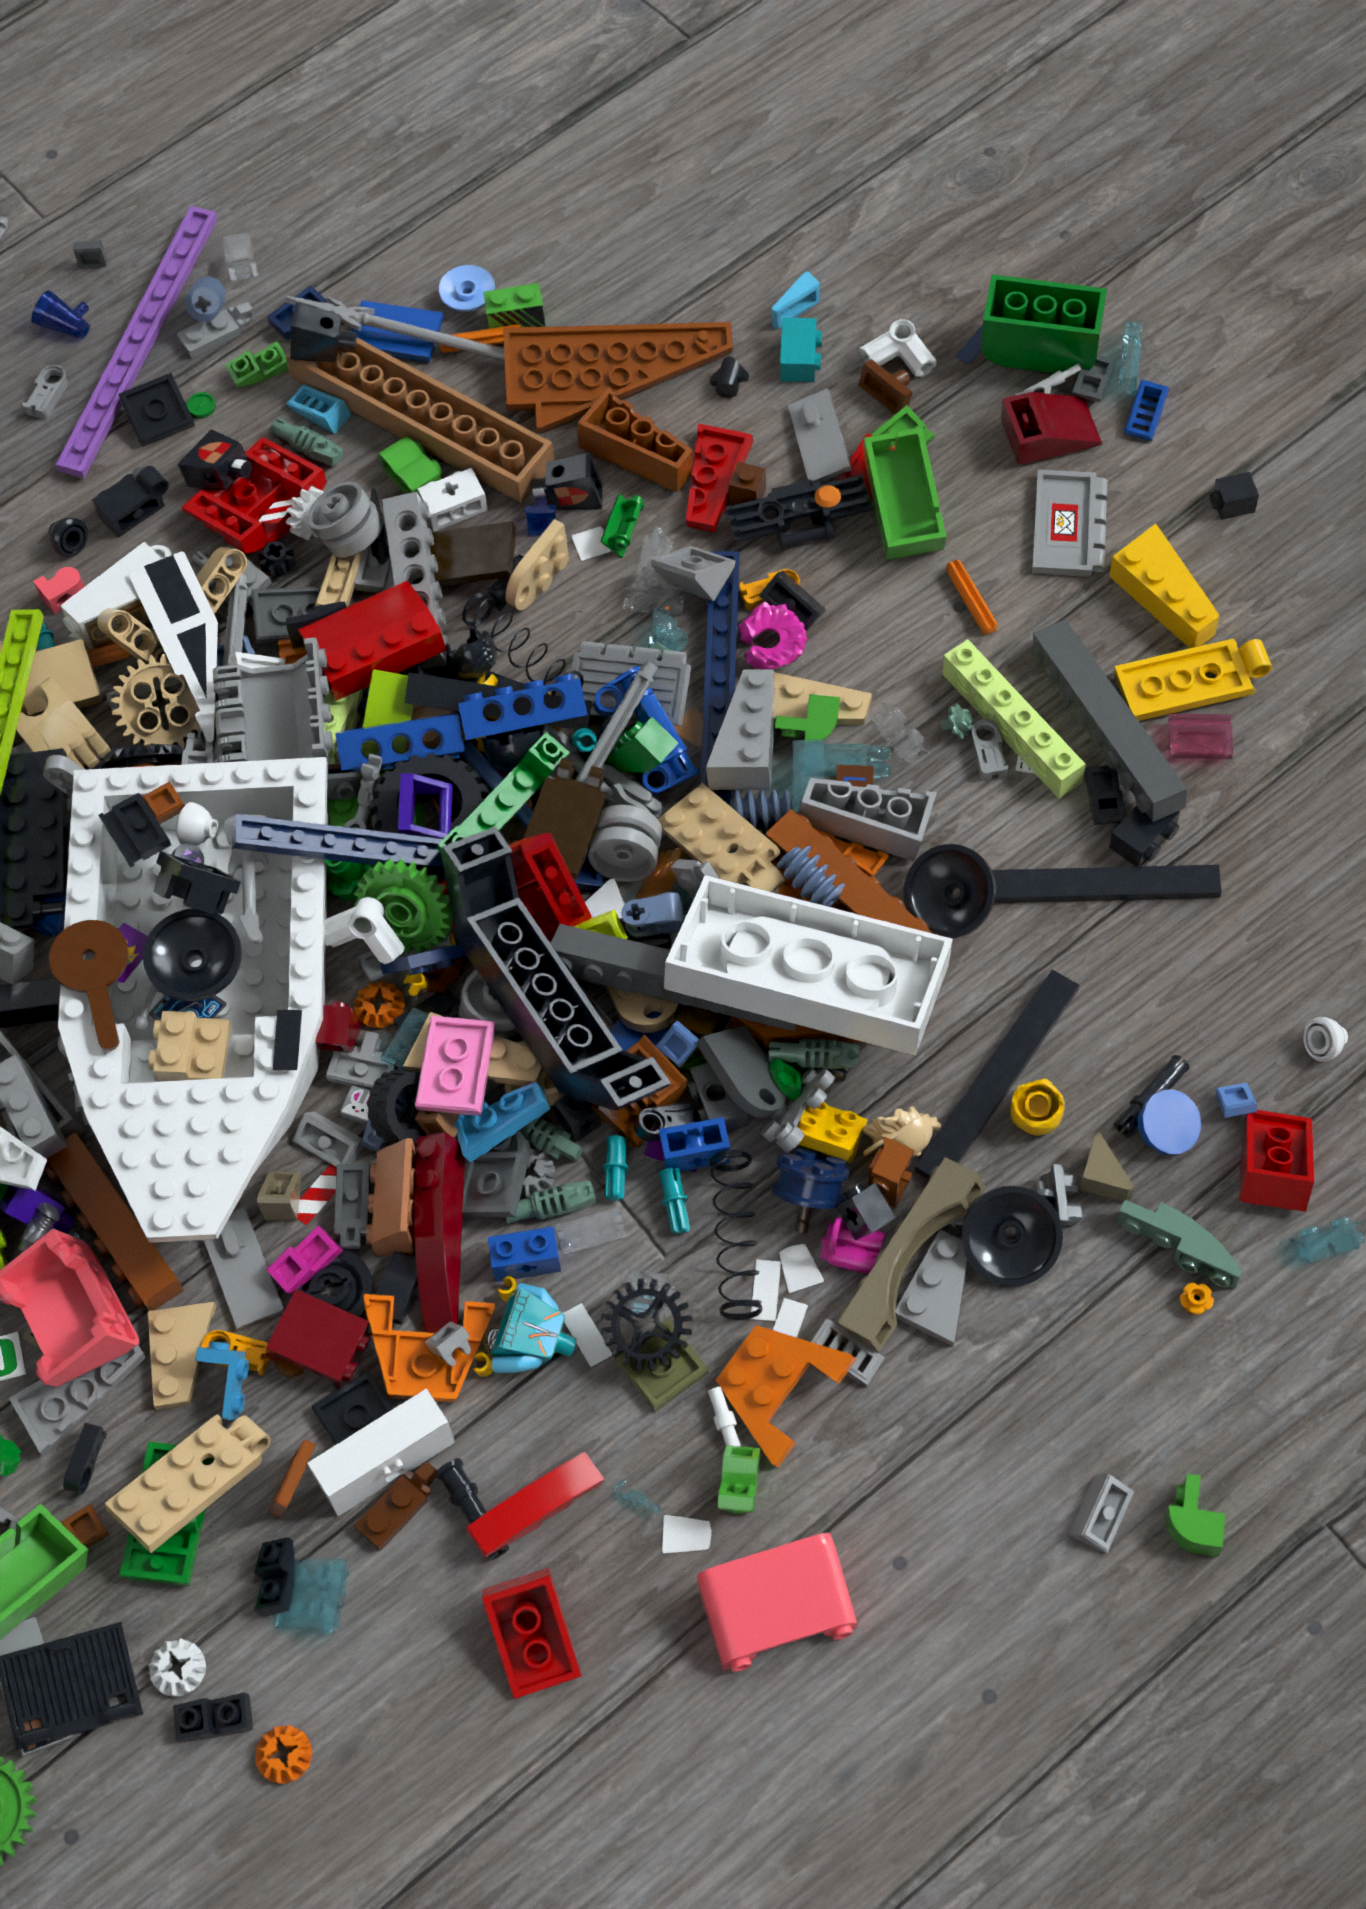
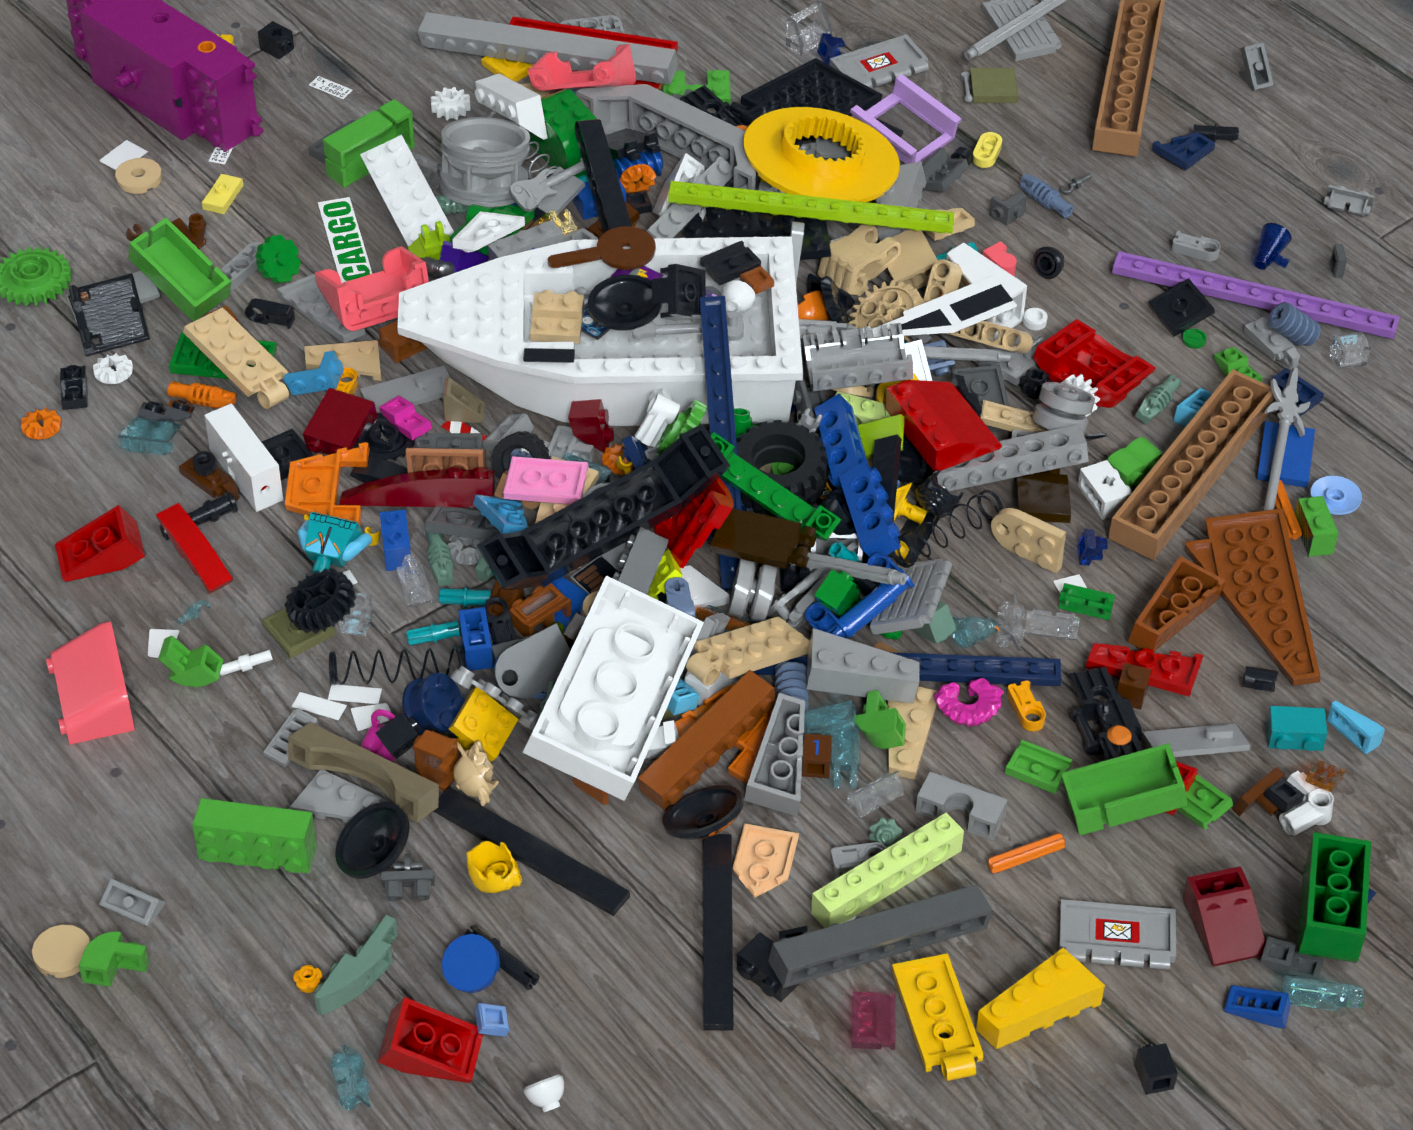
camera: 85 degrees right, 15 degrees down
(131, 500) = (1085, 295): black hinge -> none
(215, 462) = (1127, 339): black torso -> none
(242, 1531) = (202, 394): none -> orange hinge
(277, 510) = (1069, 370): sticker -> none
(291, 1478) = (216, 400): dark orange tile -> none
(318, 335) = (1244, 384): black torso -> none
(388, 1493) = (201, 458): none -> black axle
(415, 784) = (765, 434): dark purple tile -> none
(447, 1340) = (323, 488): light grey tile -> none
(571, 483) = (1125, 555): black torso -> none
(678, 1044) = (561, 617): medium blue tile -> none
(694, 571) = (1032, 640): light grey slope -> none
(765, 1374) = (273, 682): orange wing -> none
(786, 591) = (1011, 717): black slope -> none
(786, 1078) = (532, 697): green tile -> none
(810, 876) = (701, 694): sand blue piece -> none
(857, 579) = (1038, 766): none -> bright green plate
(866, 328) = (1336, 777): none -> clear orange tile
(897, 361) = (1284, 795): none -> black tile
(924, 629) = (943, 794): none -> light grey arch
(998, 837) = (764, 857): none -> light nougat tile
(1018, 1367) = (254, 835): none -> bright green piece
(1053, 380) = (1279, 922): white hand -> none
(1104, 1173) = (430, 914): dark tan slope -> none
(1181, 1584) = (60, 950): none -> tan tile

